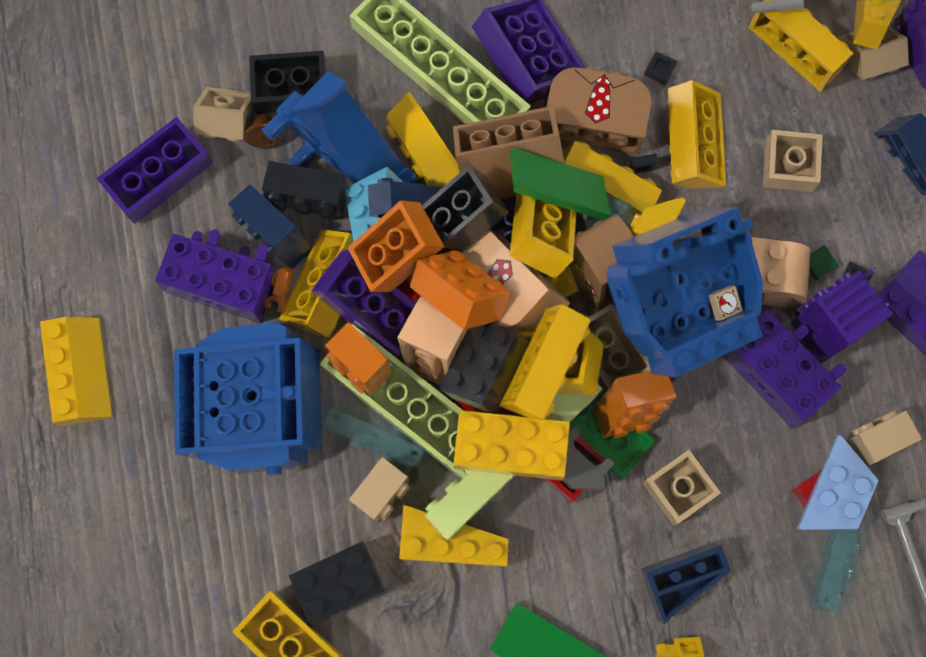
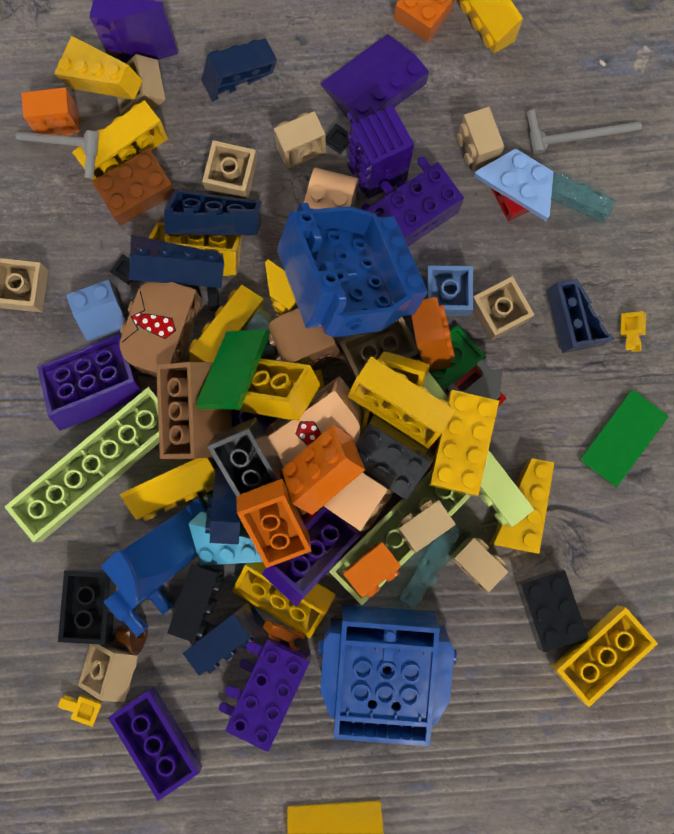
camera: 85 degrees left, 5 degrees up
(183, 95) = (84, 710): none -> yellow plate
(413, 416) = (425, 525): none -> tan brick
(610, 43) = (97, 310): none -> medium blue slope
(672, 111) = (175, 263): none -> dark blue wedge
(693, 424) = (452, 287): none -> medium blue brick
(725, 303) = (361, 242): tile -> none
(736, 146) = (211, 214): none -> dark blue wedge
(754, 62) = (134, 187): none -> dark orange brick
(821, 262) = (321, 161): dark green tile -> none
(843, 230) = (300, 139): none -> tan brick

